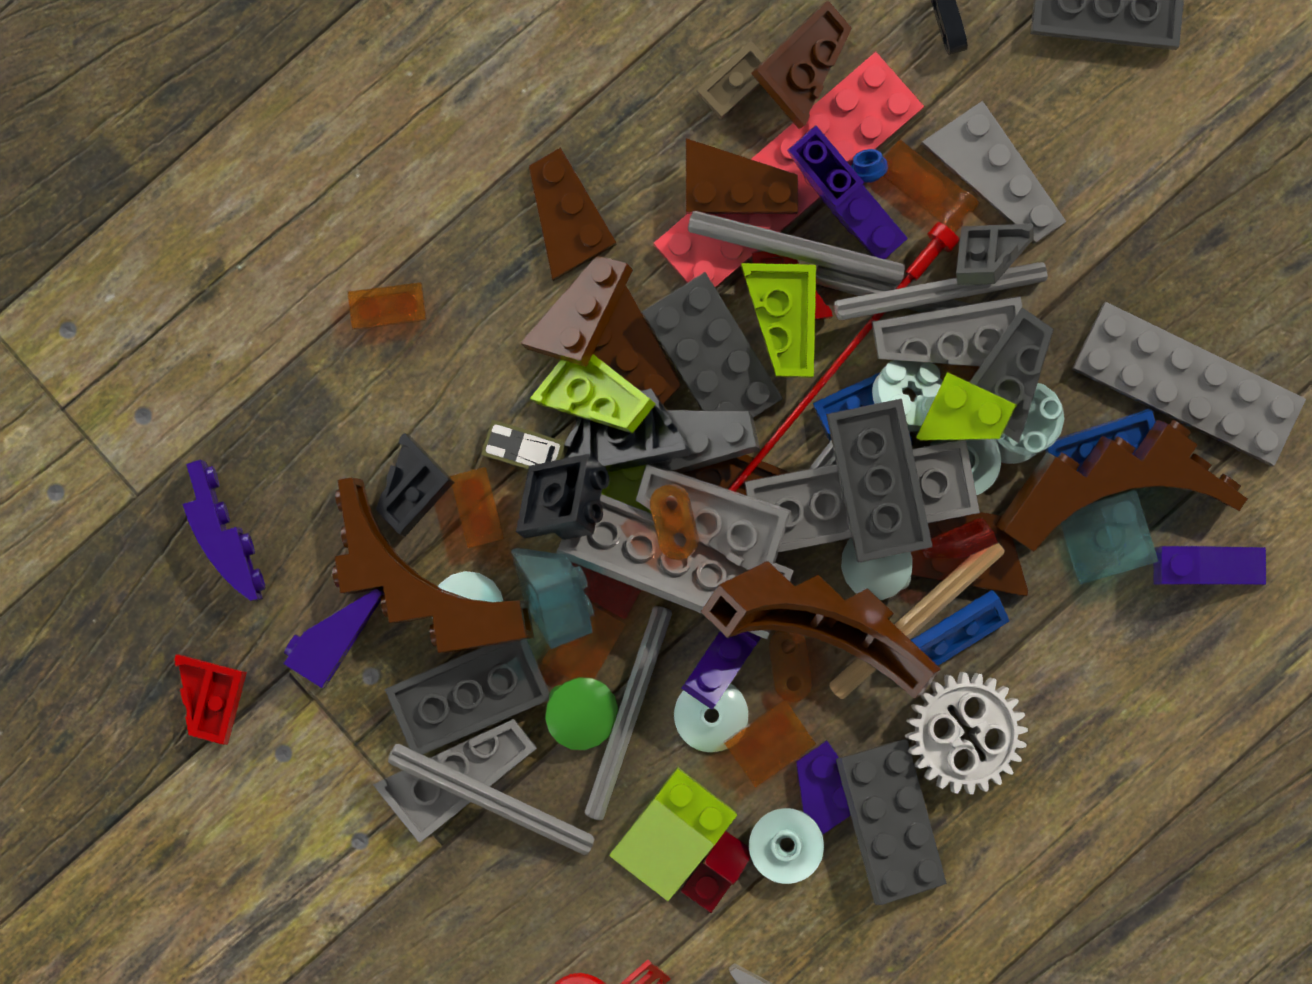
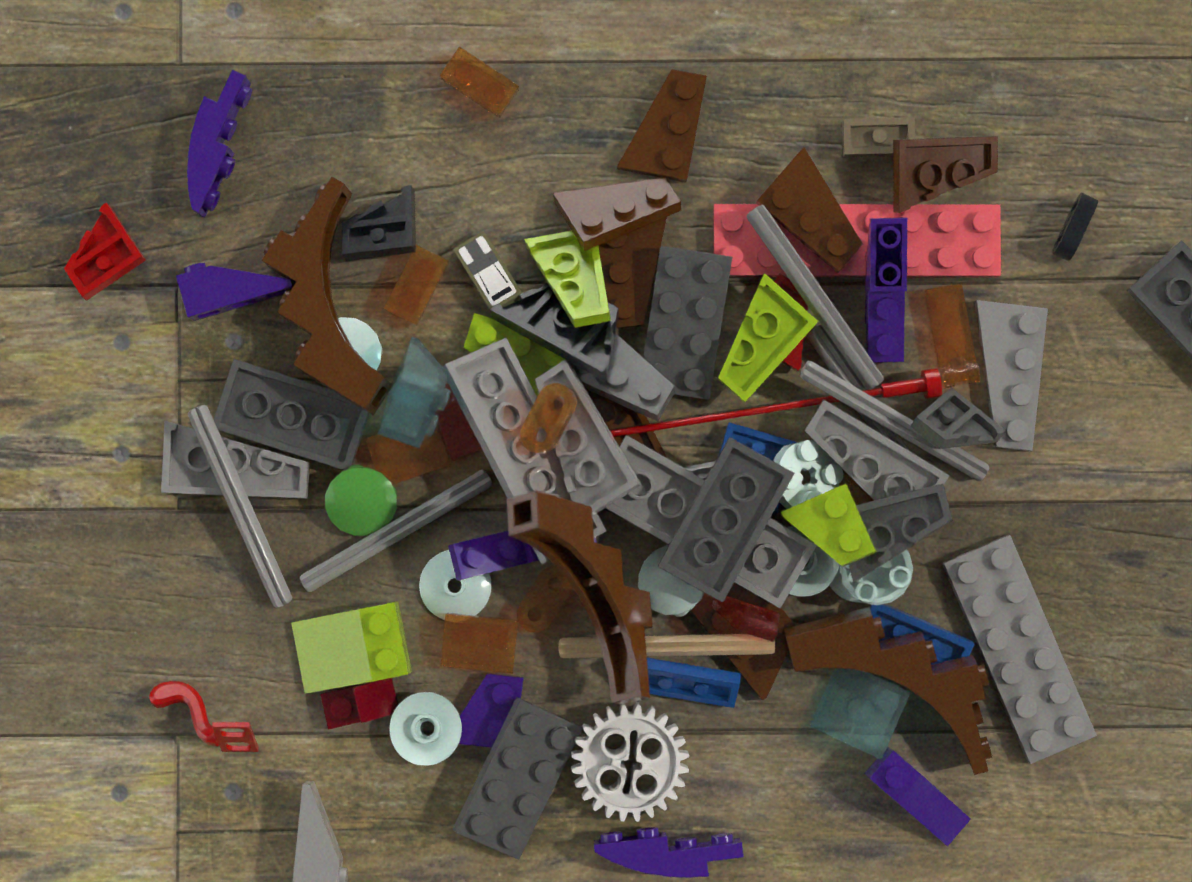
camera: 40 degrees right, 0 degrees up
(563, 498) = (482, 330): black plate -> none
(869, 165) = (922, 283): blue plate -> none
(1046, 789) = (652, 855): none -> dark purple slope

